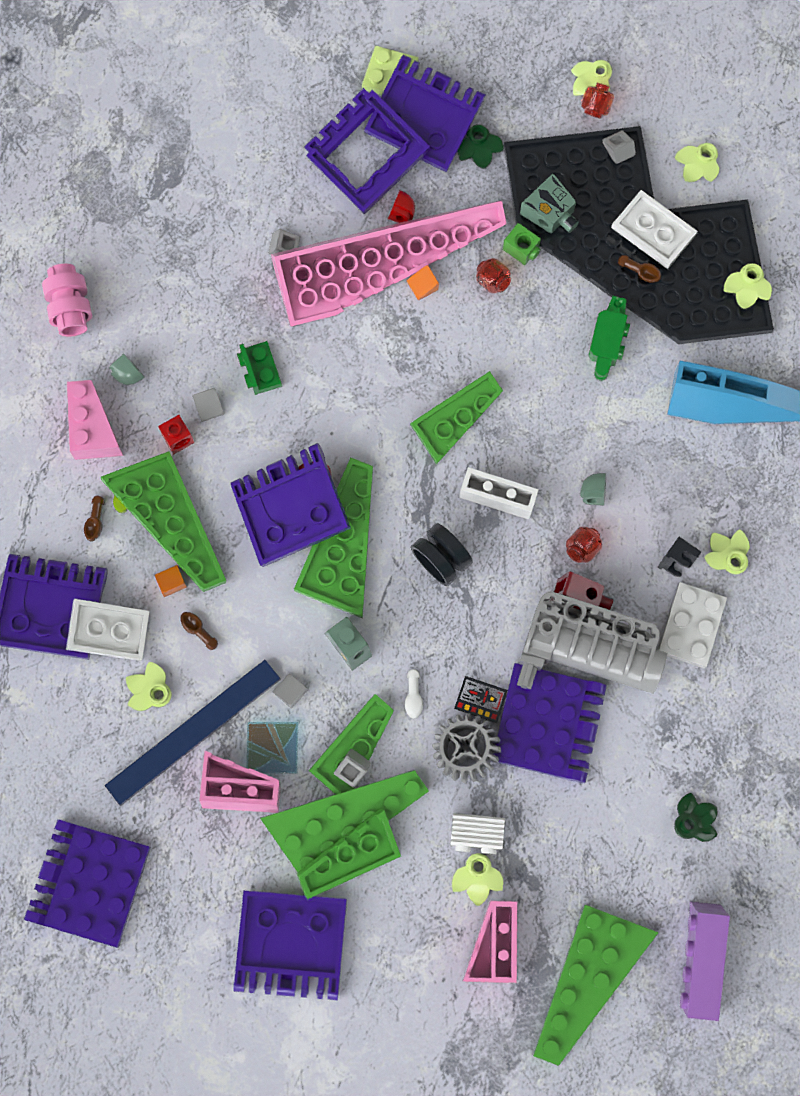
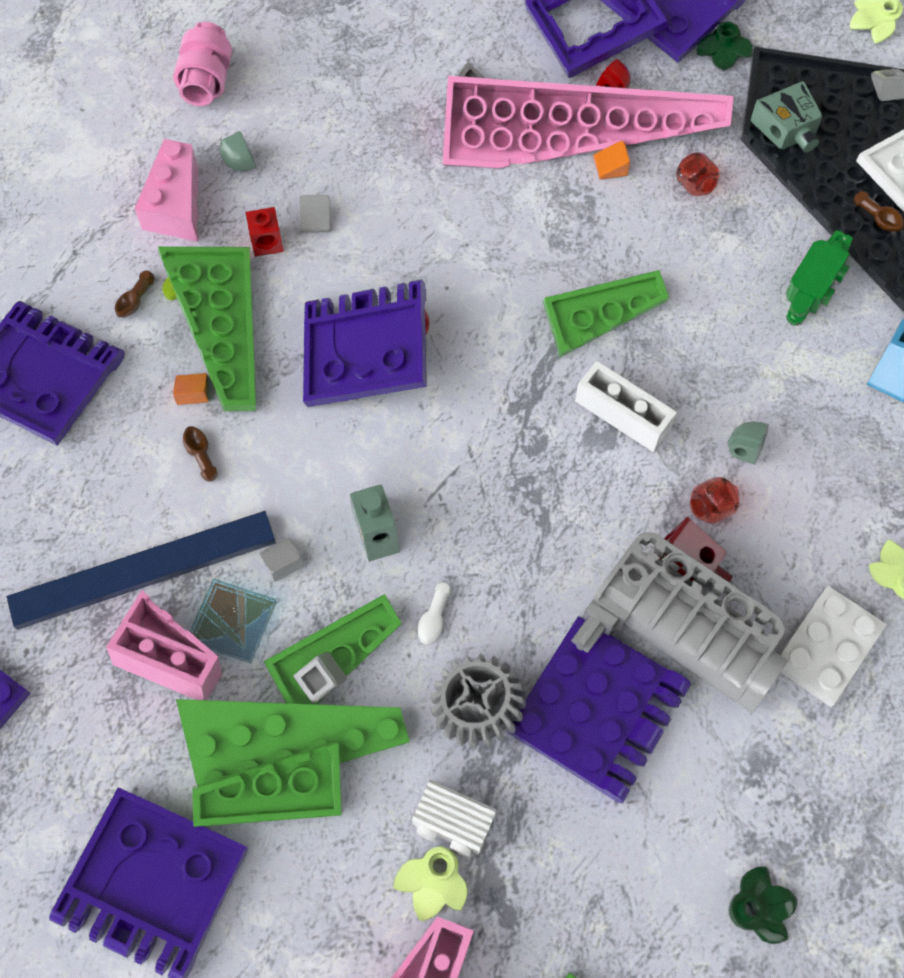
camera: 20 degrees right, 10 degrees down
(107, 630) = (90, 414): white plate -> none
(145, 687) = (111, 497): yellowish green plate -> none
(260, 367) = (389, 194): green bracket -> none
(337, 565) = (399, 427): bright green wing -> none
(441, 554) = (529, 452): black wheel -> none
(480, 699) = (519, 647): piece -> none
(522, 235) = (742, 152): bright green brick -> none
(597, 100) = (877, 33): clear red head -> none
(680, 553) = (838, 545): black hinge -> none

